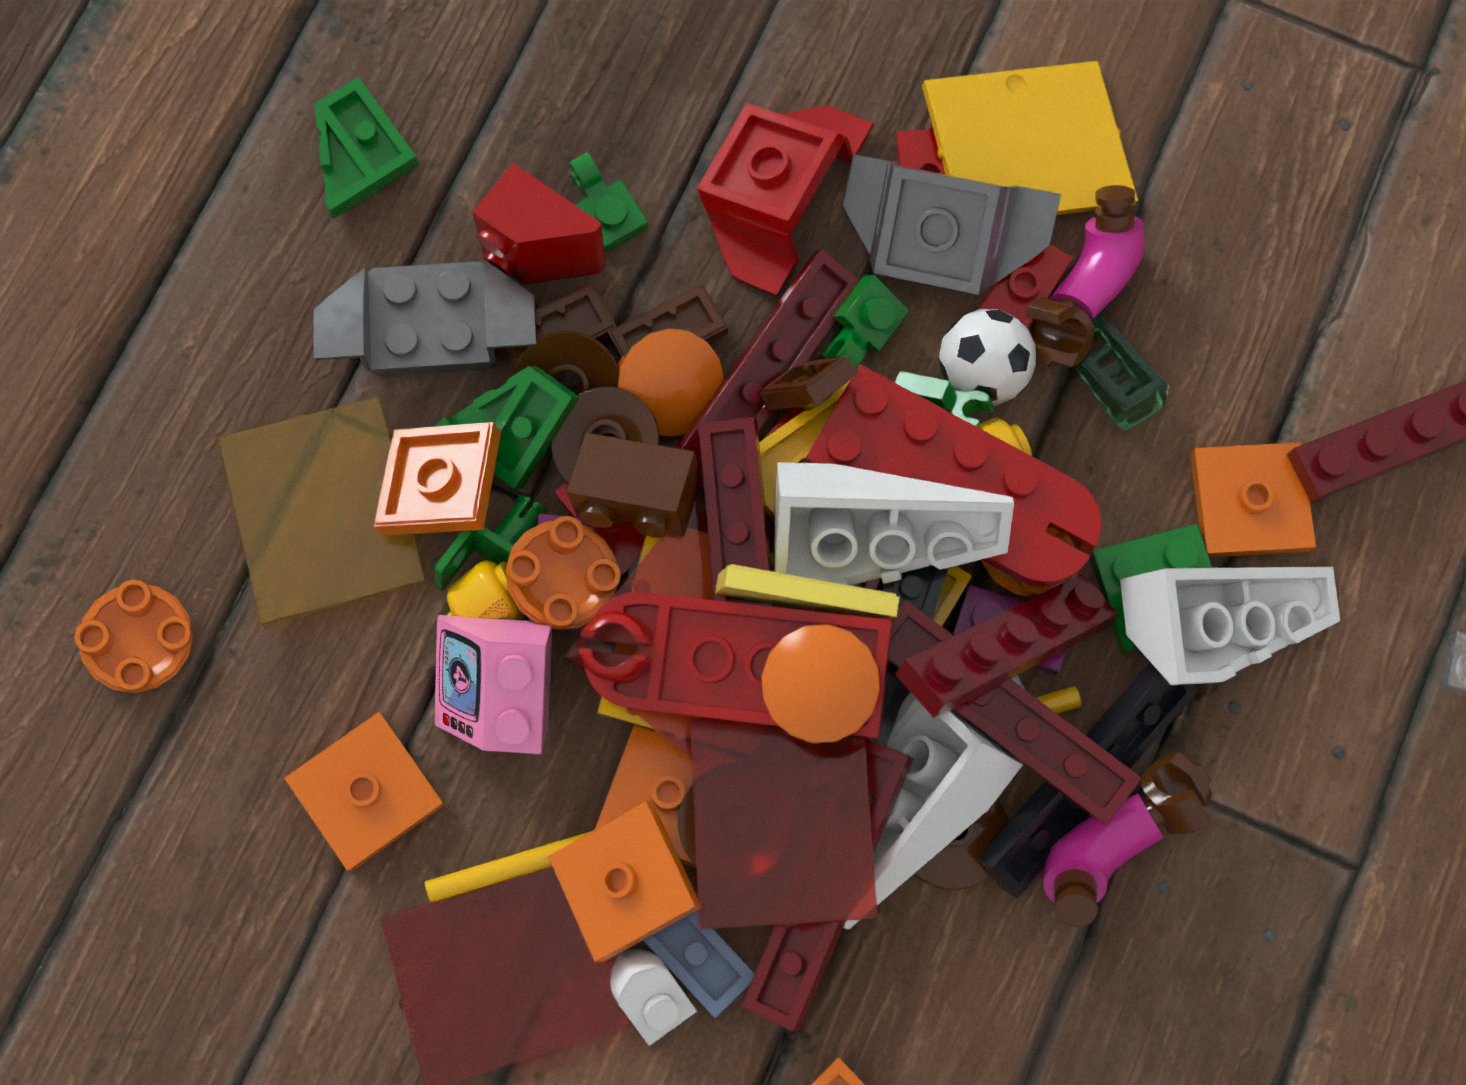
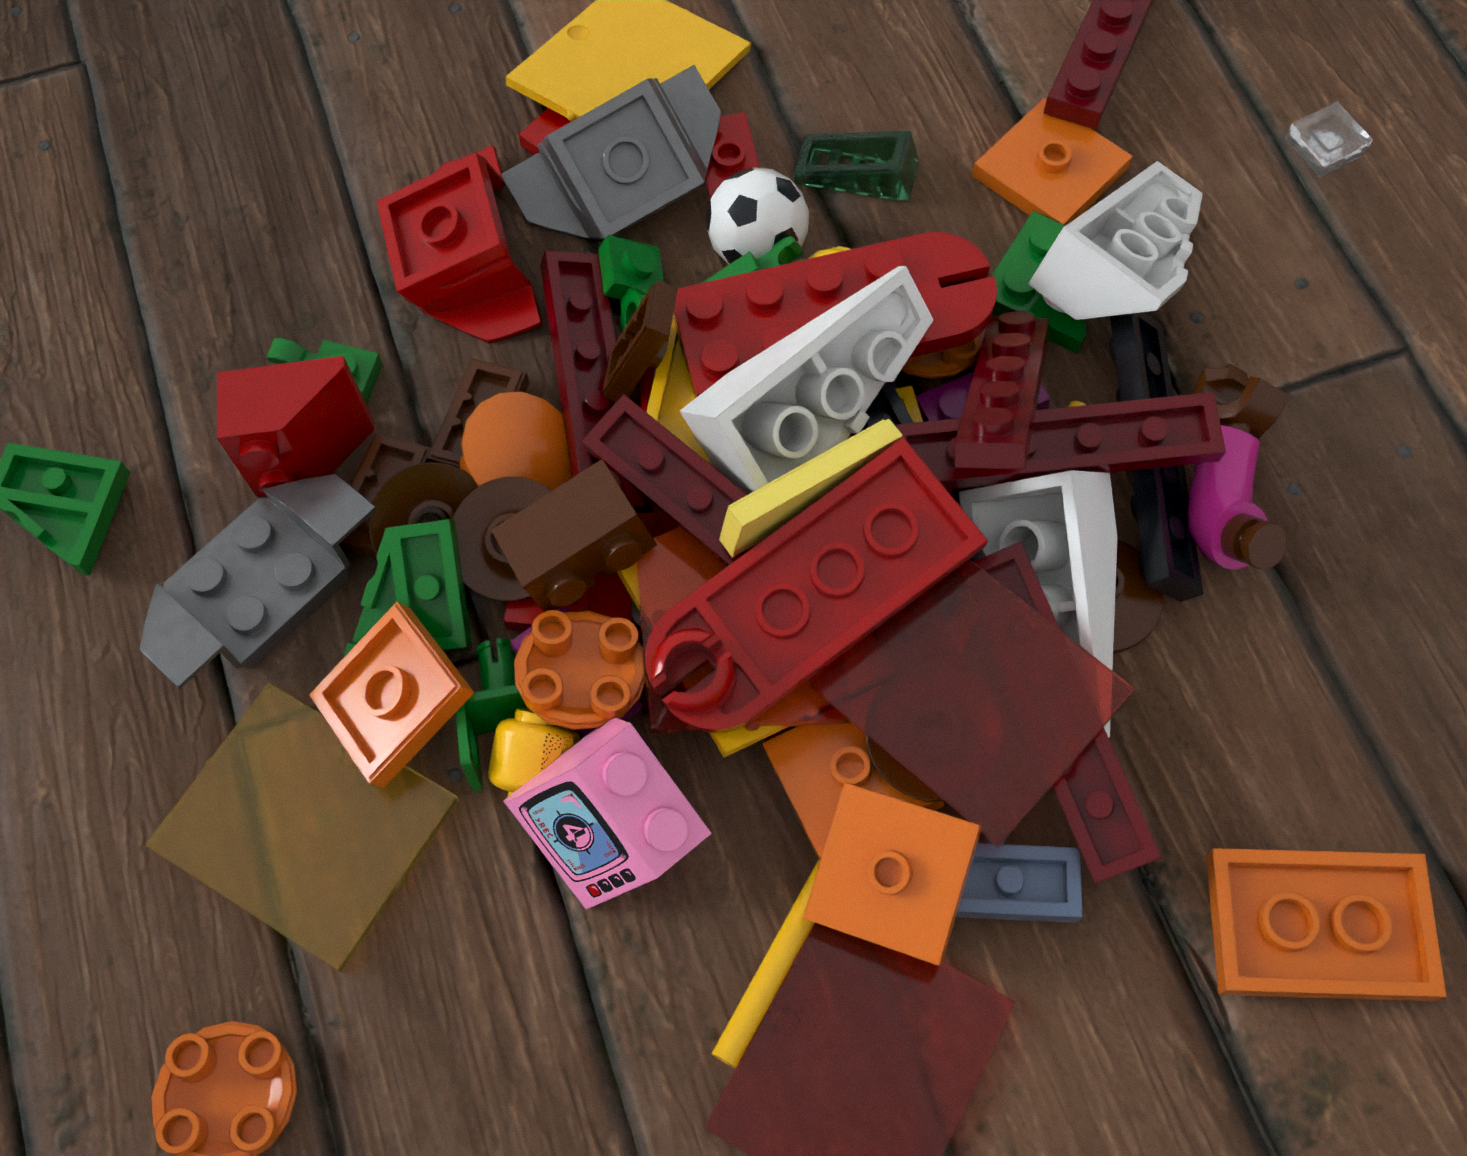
camera: 35 degrees left, 10 degrees down
(364, 792) = (578, 1028): orange plate -> none
(649, 994) = (1005, 953): white plate -> none
(820, 683) = (899, 537): orange dish -> none
(1104, 267) = (777, 106): piece -> none

